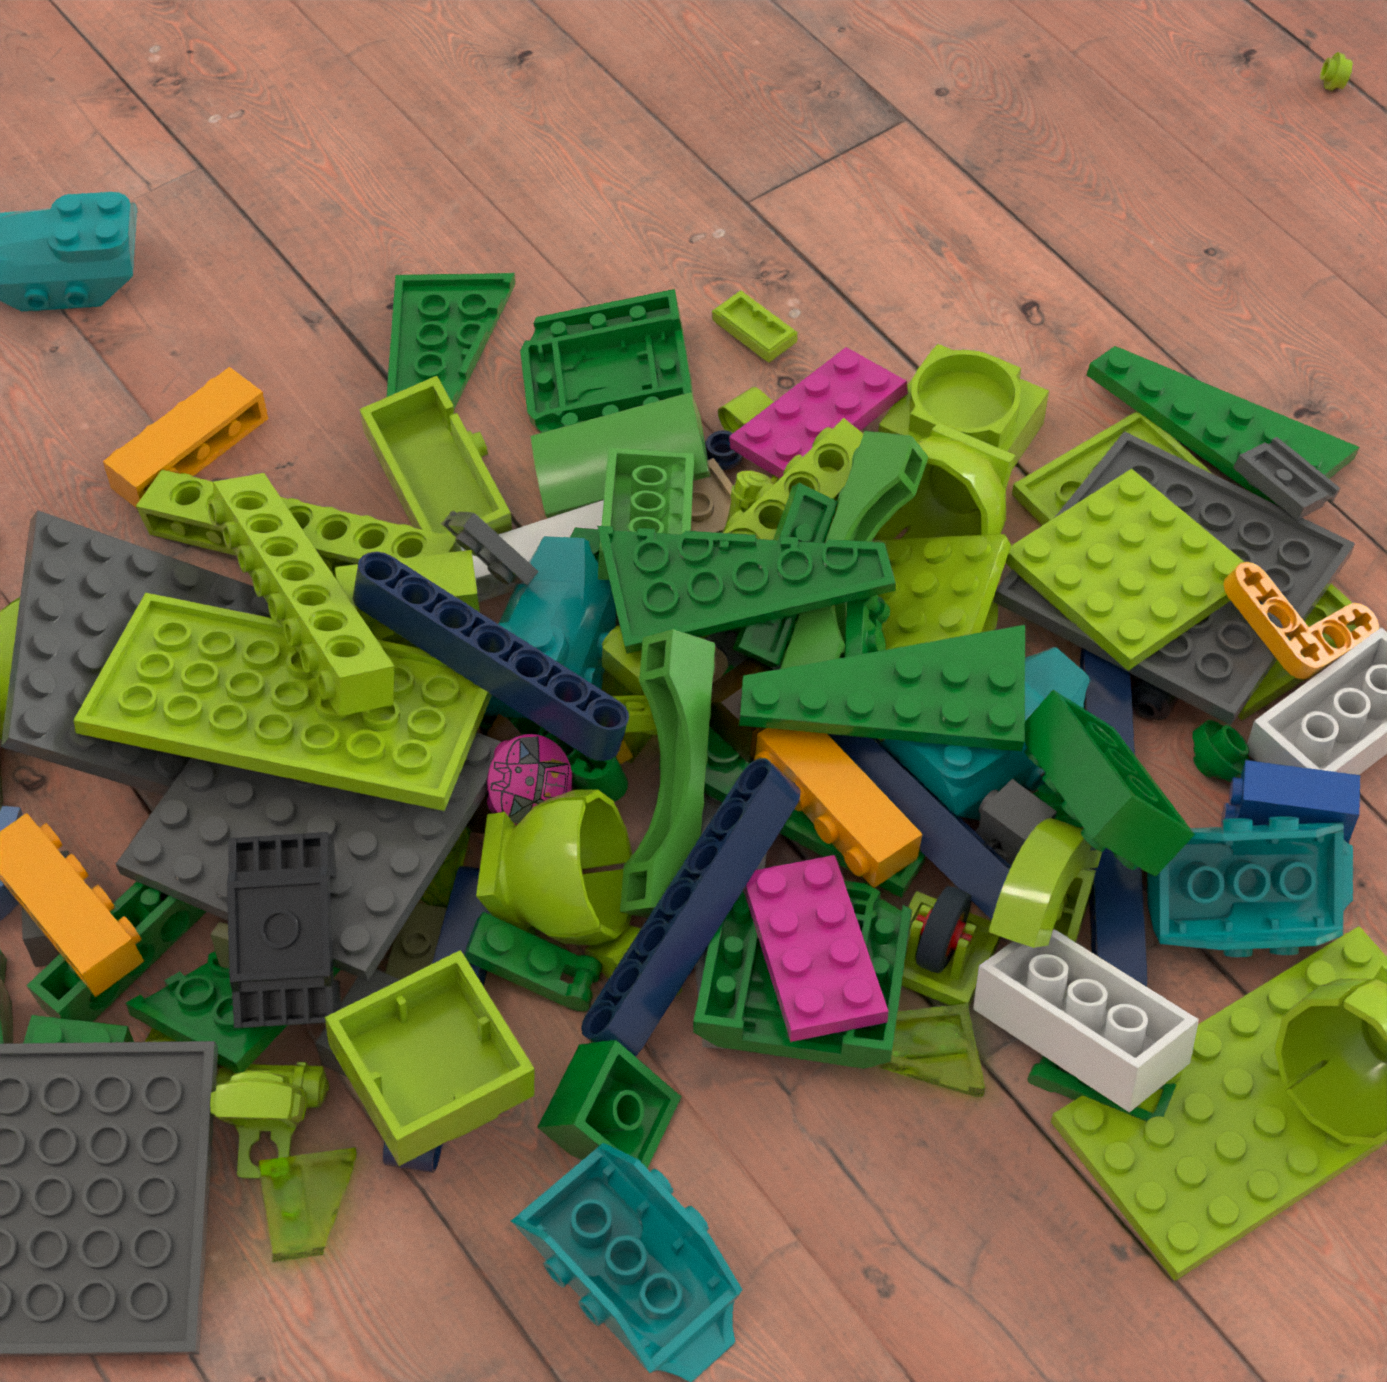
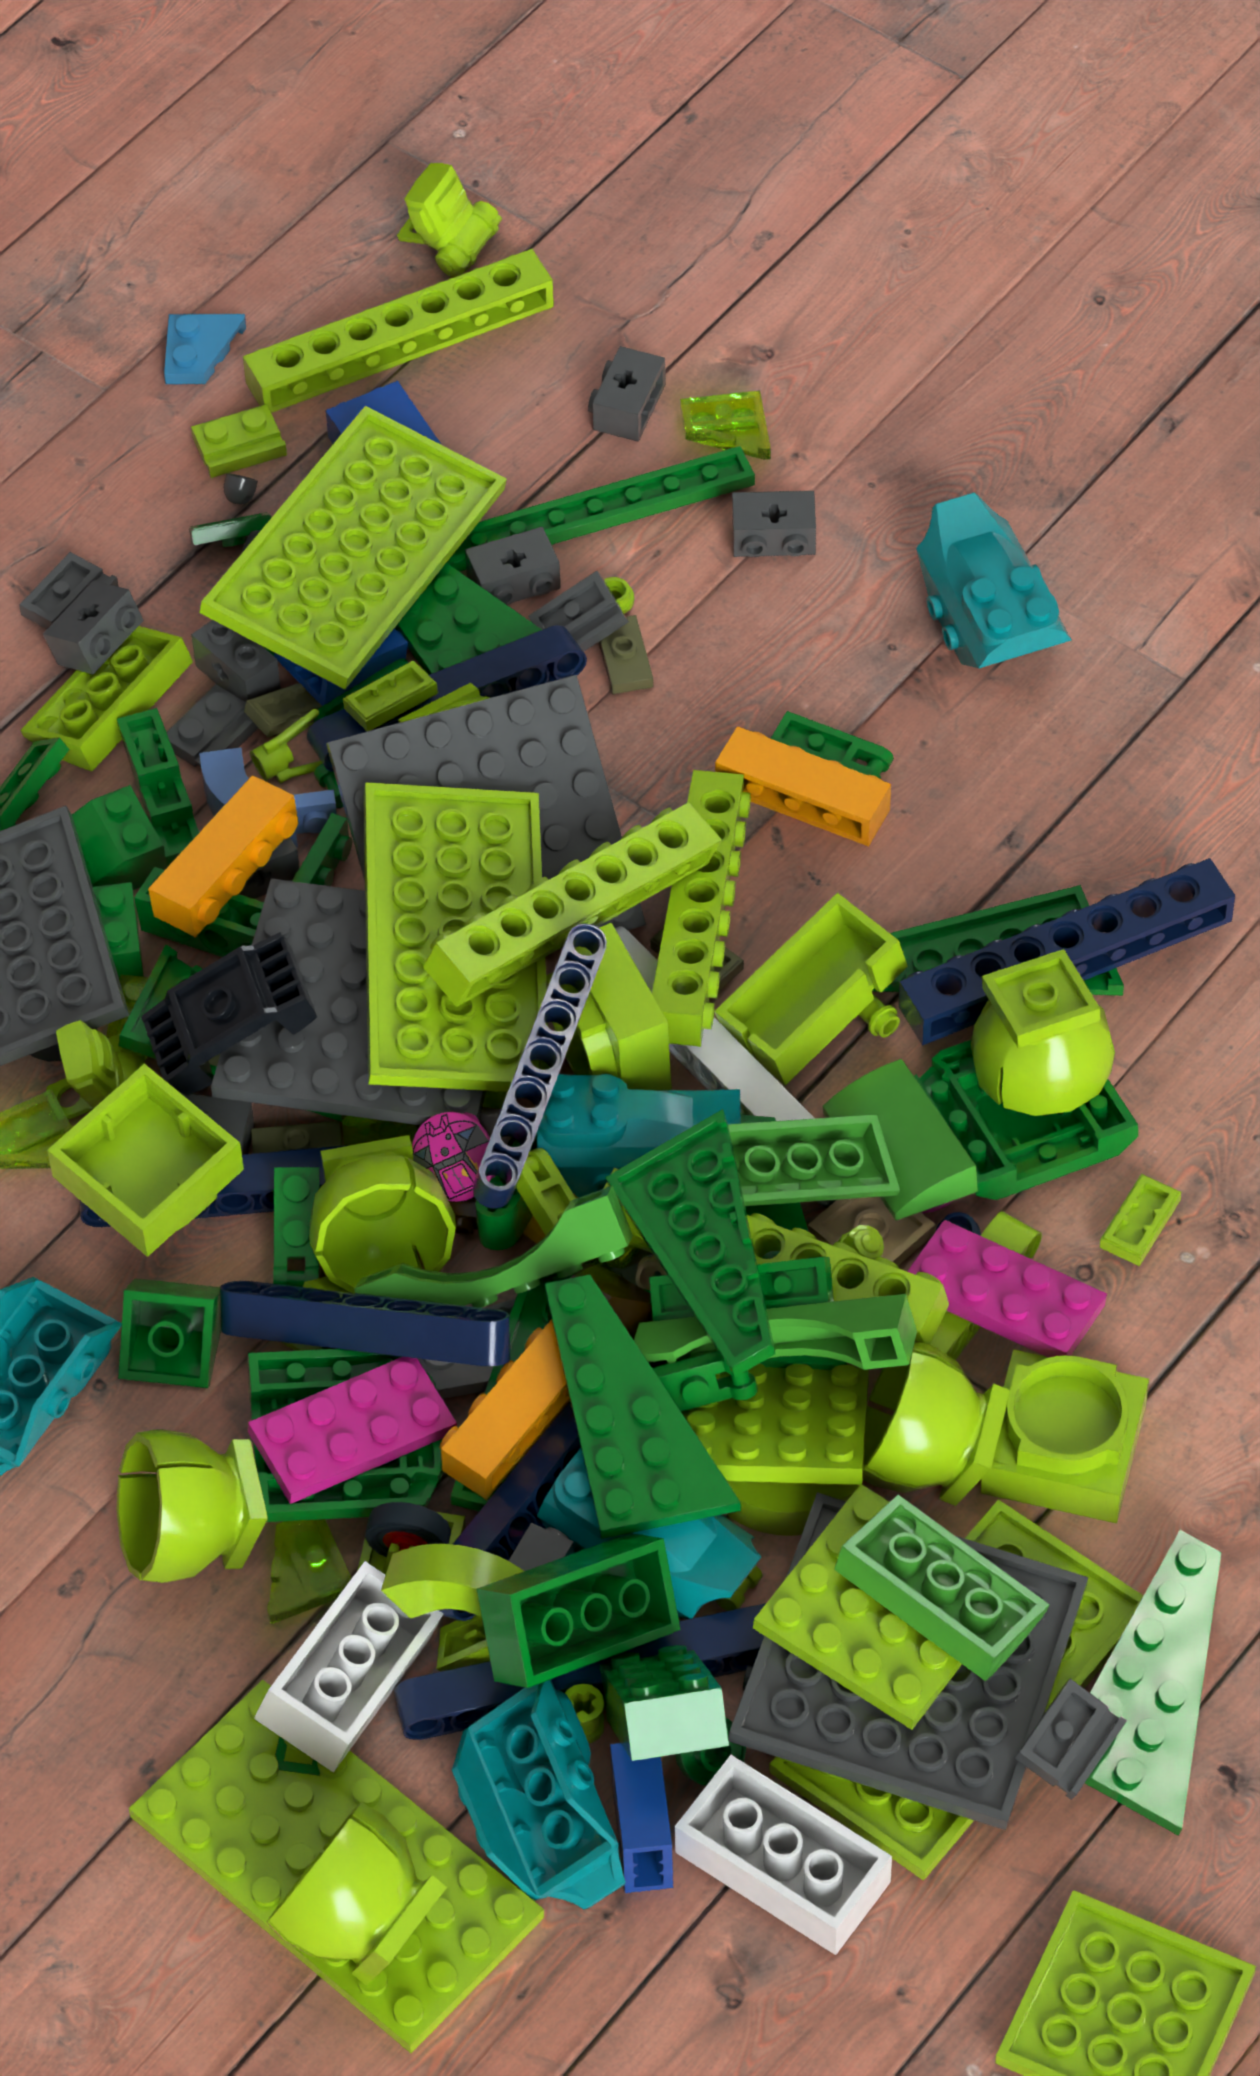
camera: 75 degrees right, 0 degrees up
(92, 852) = (327, 851): none -> green plate
(147, 408) = (832, 744): none -> green plate
(473, 295) = (1135, 926): none -> dark blue brick
(489, 547) = (690, 1041): dark grey plate -> none
(565, 314) = (1042, 1038): none -> lime plate
(858, 1128) = (188, 1510): none -> lime plate
(1140, 510) = (940, 1587): none -> bright green slope
(1227, 735) = (663, 1703): none -> brick
(1304, 639) = (849, 1789): light orange beam -> none

